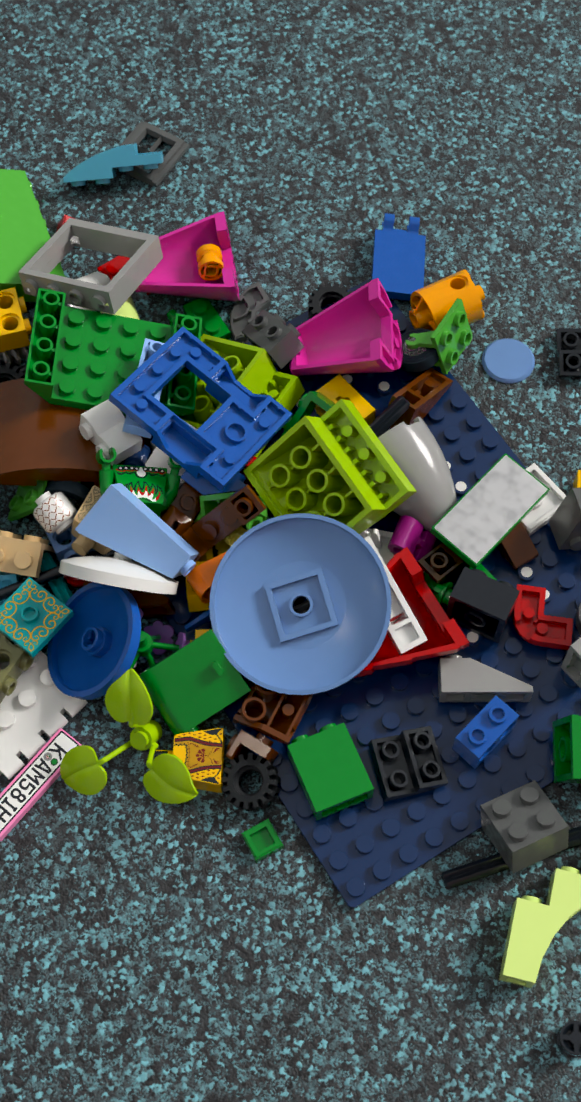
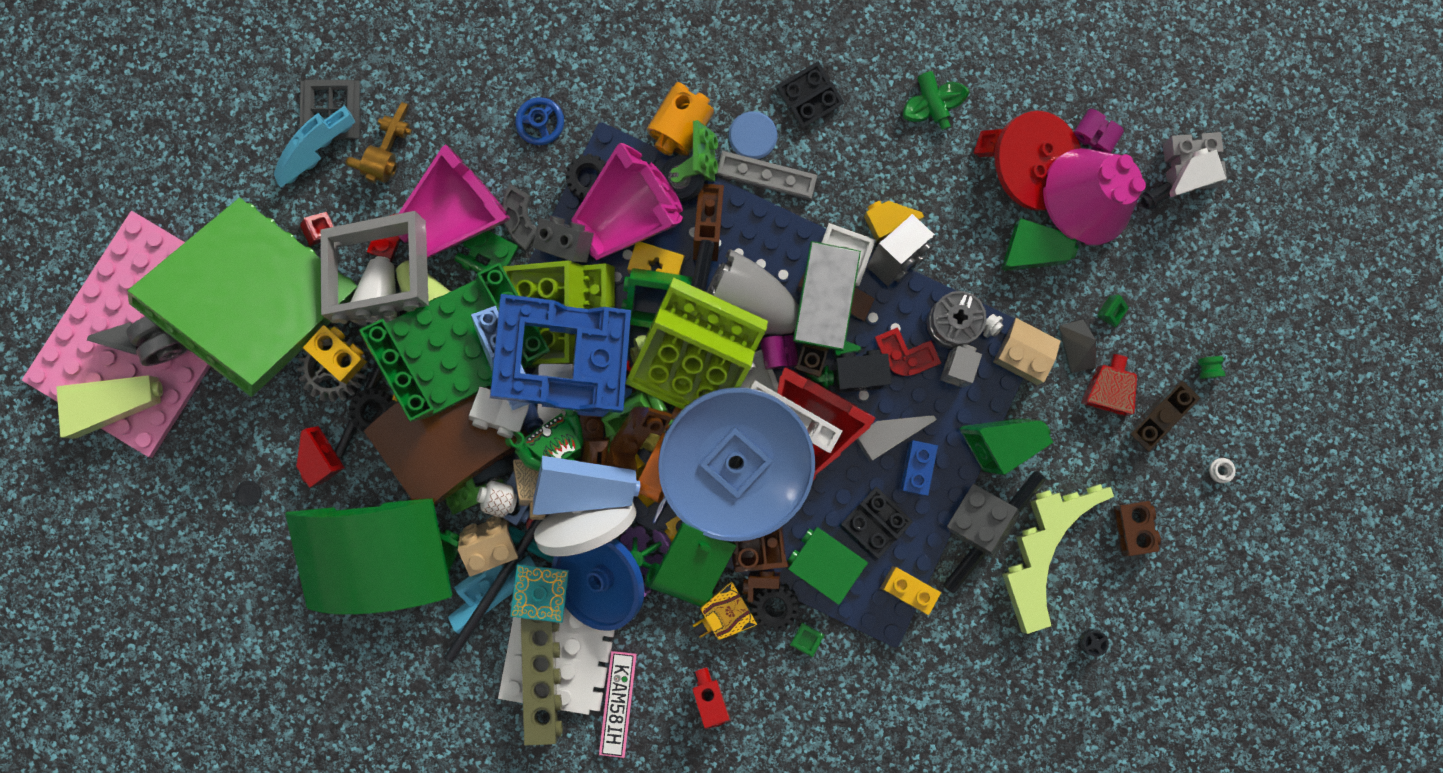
camera: 40 degrees left, 20 degrees up
(121, 835) = (714, 711): none -> red torso
(130, 702) = (662, 614): lime plant -> none
(161, 208) = (379, 163): none -> pearl gold piece
(209, 262) = (463, 197): light orange wheel -> none
(320, 244) = (535, 113): none -> blue piece
(399, 258) = (612, 95): blue tile -> none
(401, 848) = (910, 590): none -> yellow brick
(500, 398) = (766, 175): none -> light grey tile

